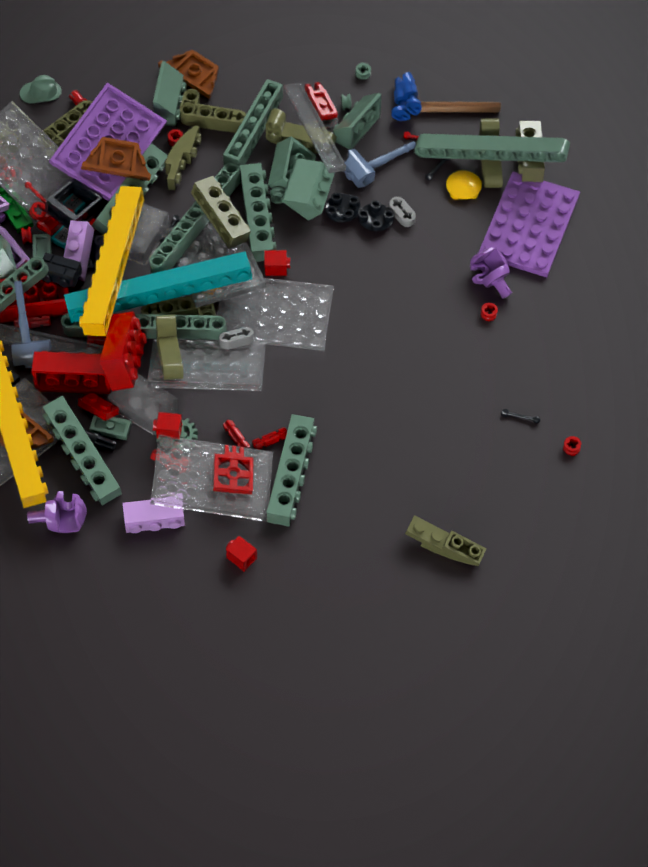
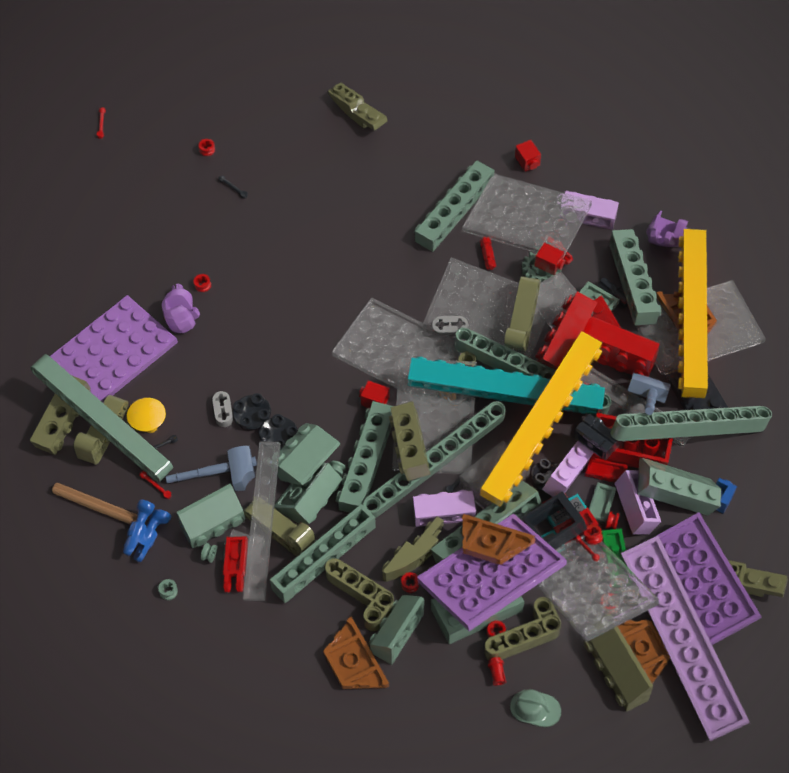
camera: 155 degrees left, 0 degrees up
(172, 195) = (444, 505): none -> lavender brick
(234, 458) = (504, 217): red piece -> none
(269, 438) = (458, 241): red axle -> none

